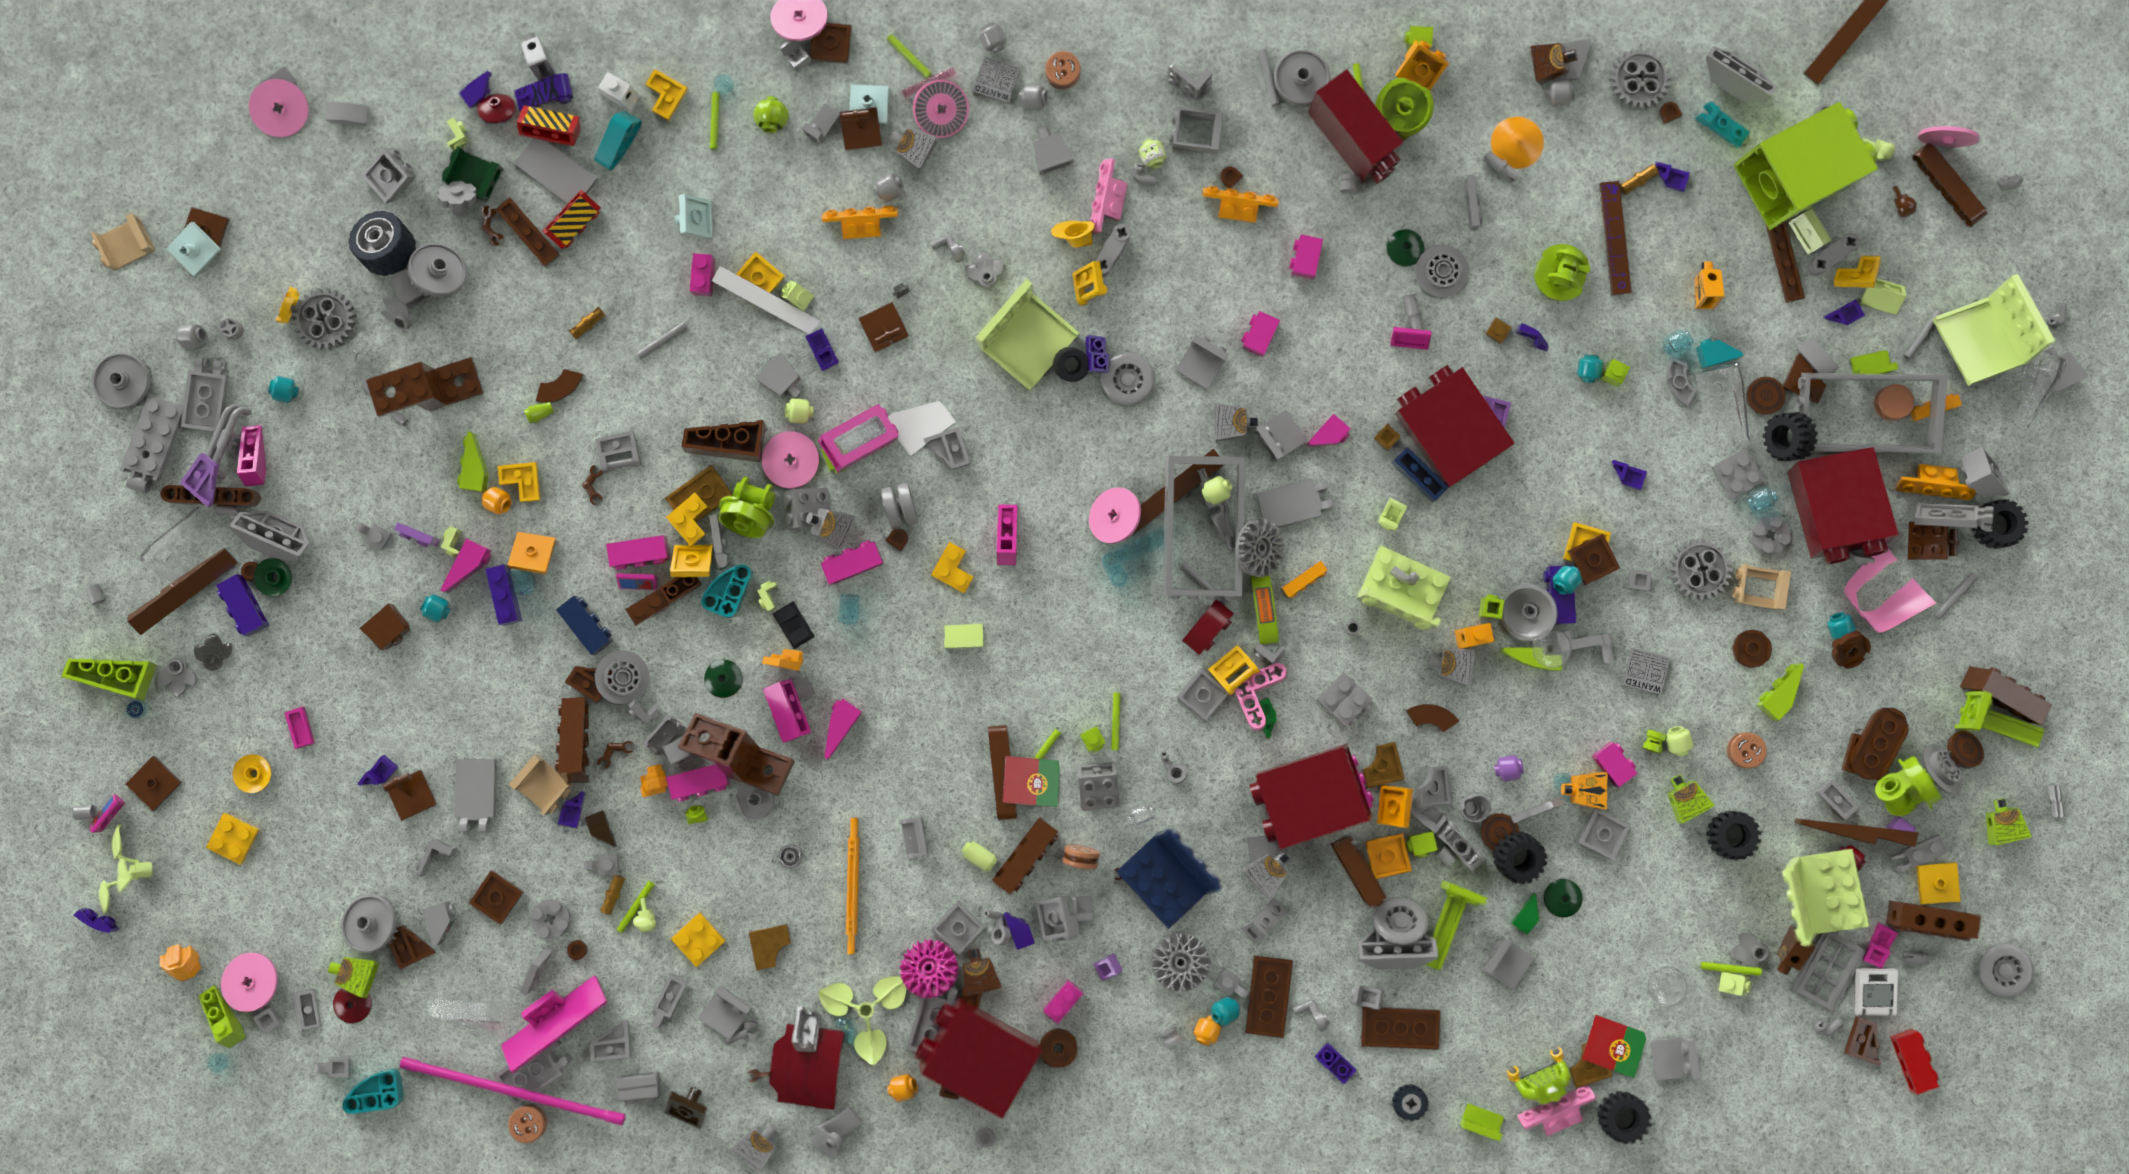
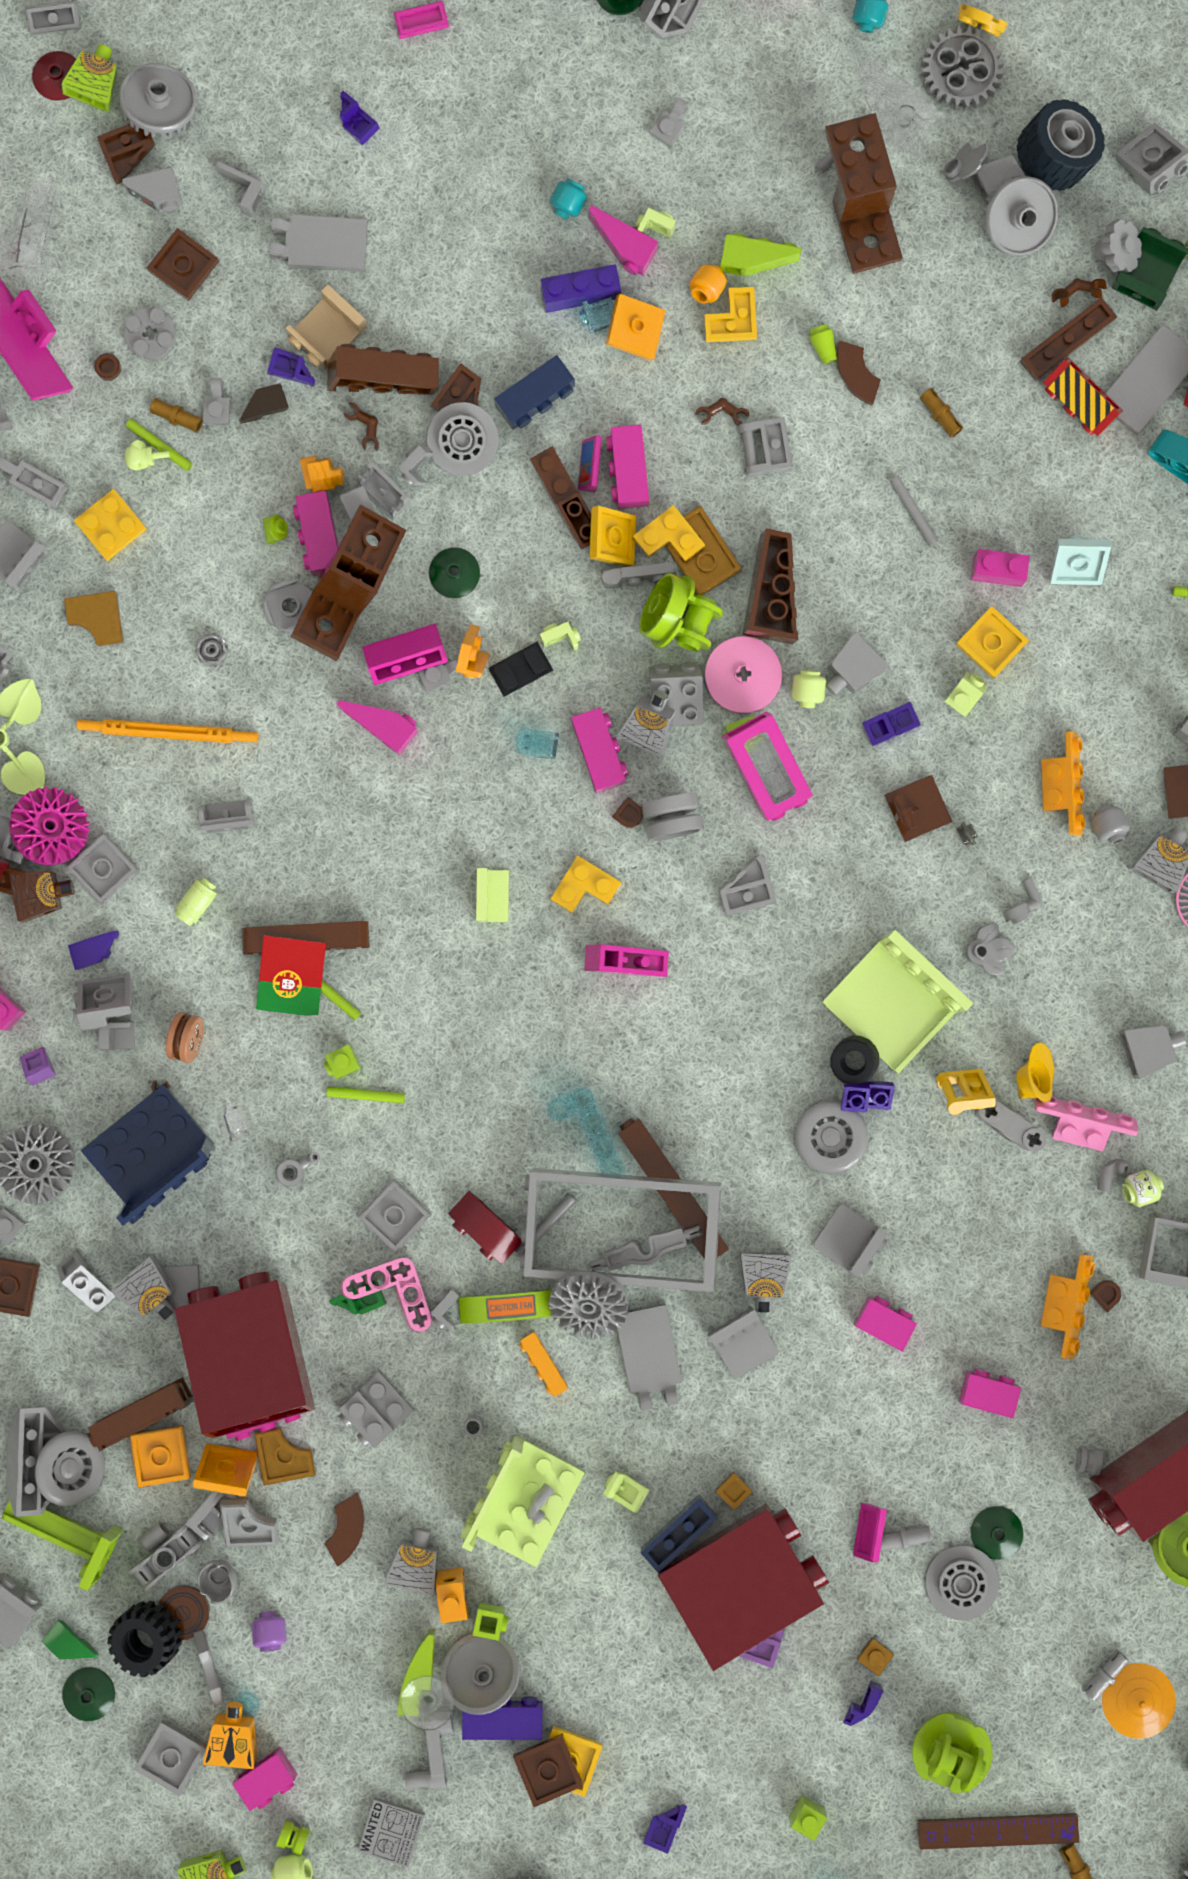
camera: 90 degrees right, 0 degrees up
(386, 627) = (546, 135): reddish brown torso -> none
(410, 794) = (324, 158): reddish brown plate -> none
(422, 538) = (661, 185): medium lavender plate -> none
(536, 970) = (82, 311): light grey wing -> none
(722, 588) = (569, 575): teal beam -> none
(765, 300) = (961, 650): white sticker -> none
(920, 423) = (783, 850): white sticker -> none
(1000, 933) = (91, 924): light grey plate -> none
(1024, 856) = (190, 961): reddish brown wedge -> none
(1098, 786) = (280, 1066): light grey bracket -> none
(1123, 525) = (628, 1117): bright pink piece -> none
(1217, 490) = (669, 1250): yellowish green head -> none
(1229, 665) = (432, 1255): yellow plate -> none
(1330, 433) = (743, 1412): dark pink slope -> none
(1421, 844) = (173, 1503): lime brick -> none
(1472, 202) = (1057, 1632): light grey hinge -> none
(1567, 580) = (520, 1731): teal head -> none
(1590, 368) = (816, 1783): teal head -> none
(1640, 580) = (517, 1833): light grey plate -> none

